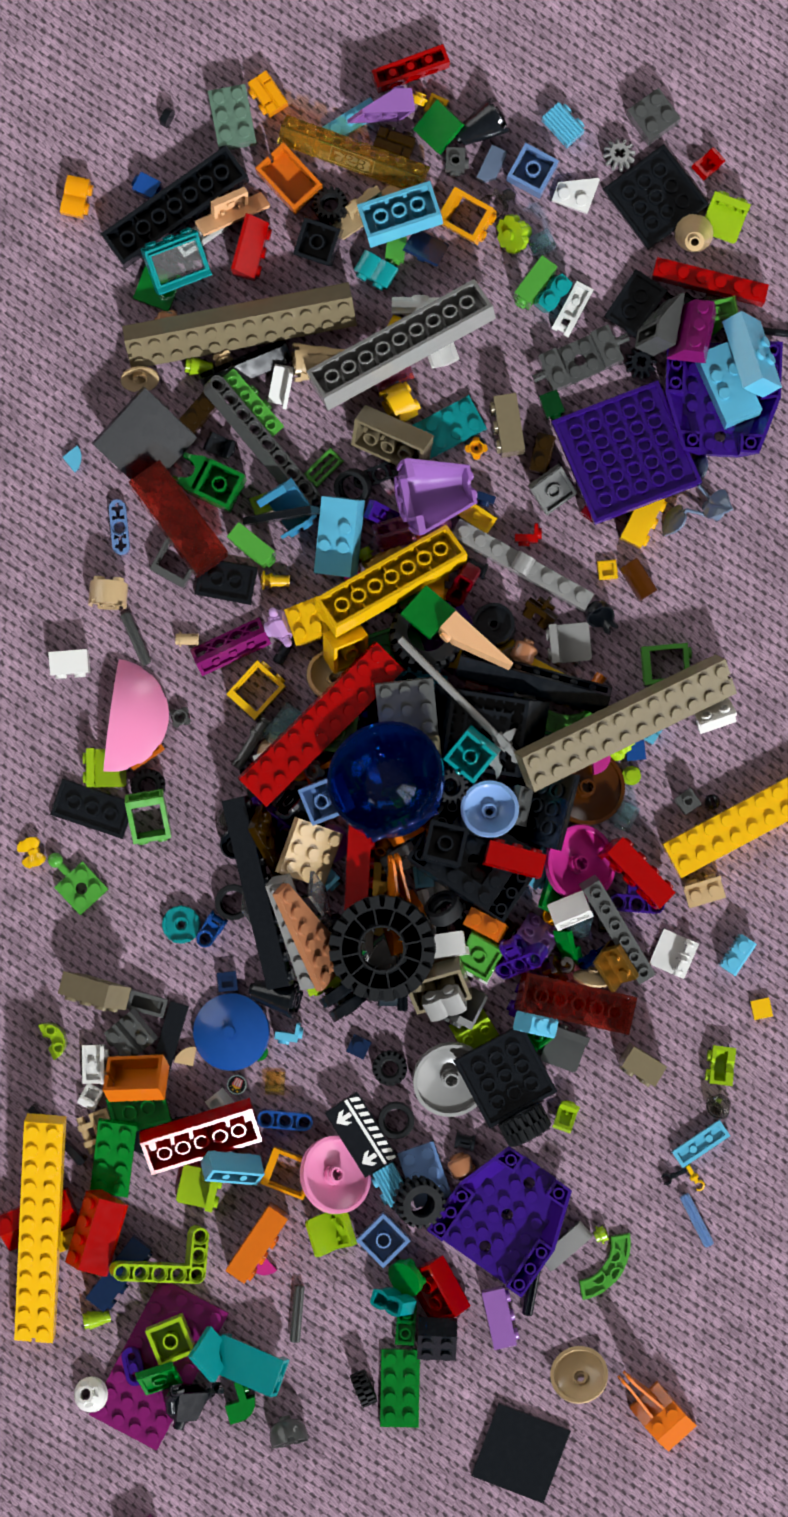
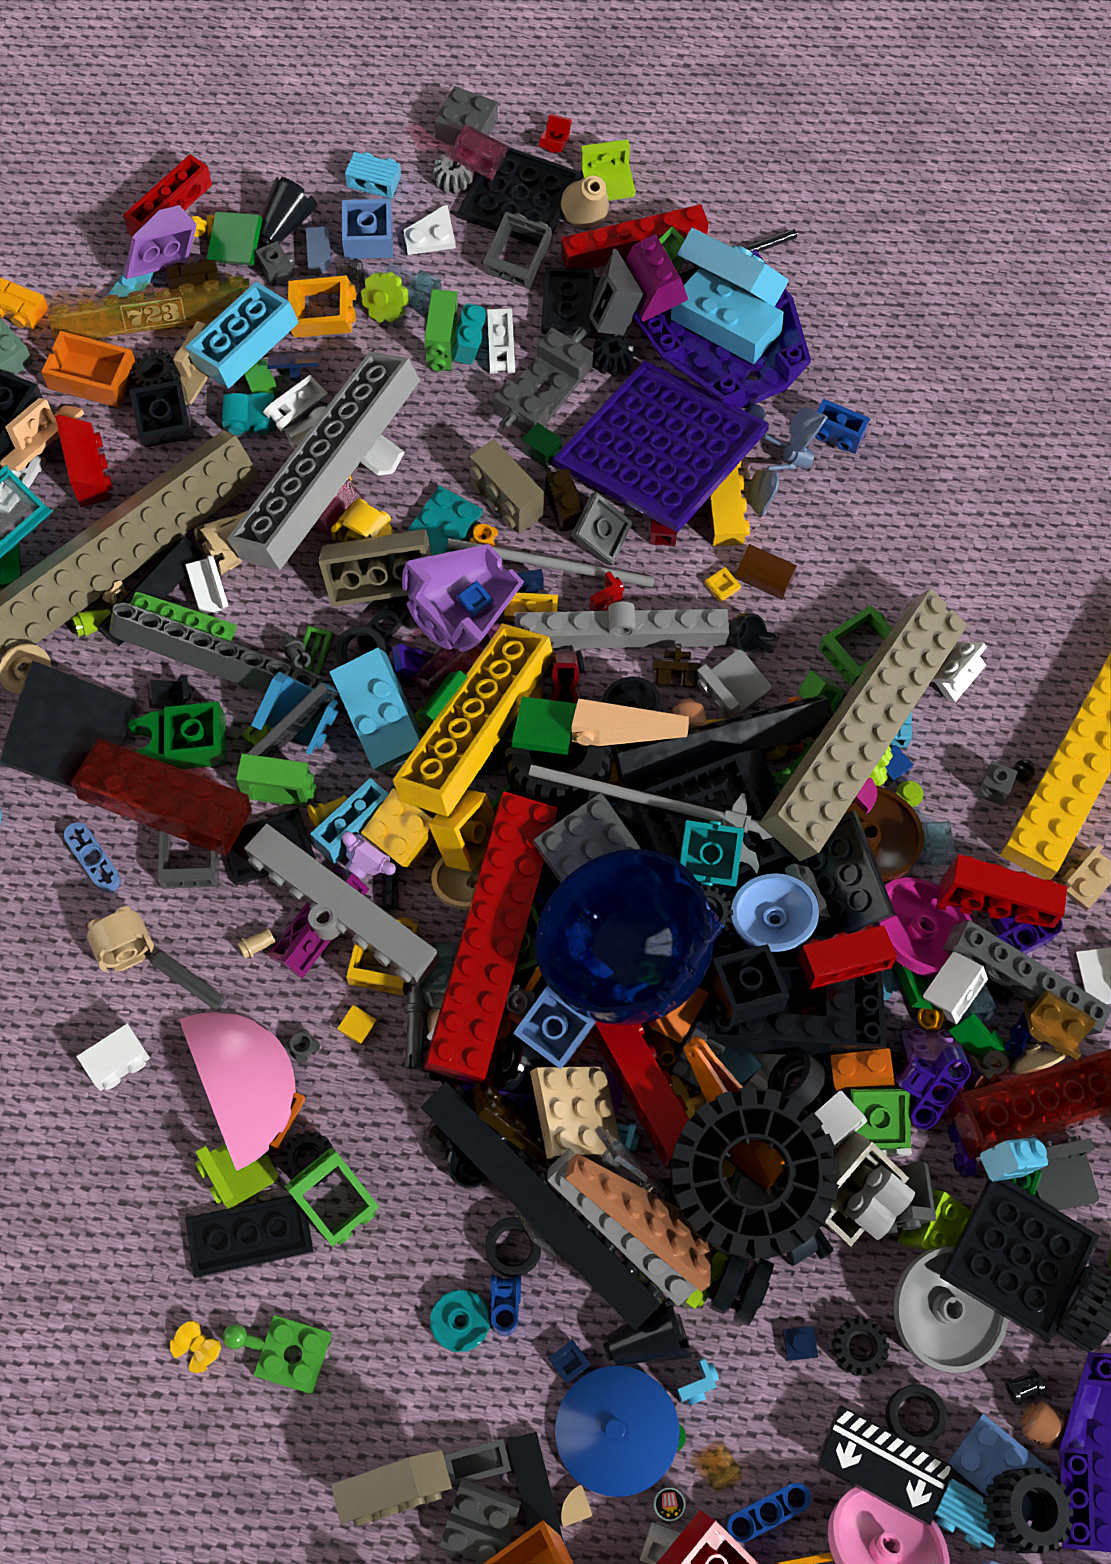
camera: 40 degrees left, 20 degrees down
(198, 413) = (122, 668): dark brown brick -> none
(218, 723) = (357, 1025): none -> yellow tile
(246, 650) = (342, 907): none -> light grey hinge
(283, 596) = (349, 817): none -> medium azure brick
(311, 462) = (294, 650): none -> dark grey axle
(380, 553) = (442, 696): none -> green tile
(409, 282) = (295, 402): none -> white plate
(439, 497) = (474, 599): none -> blue tile
(507, 493) = (558, 564): none -> light grey piece
(608, 257) = (509, 271): none -> dark grey window
(620, 679) = (818, 684): none -> bright green panel
(642, 155) = (479, 151): none -> clear pink brick
(752, 506) = (842, 427): none -> blue brick

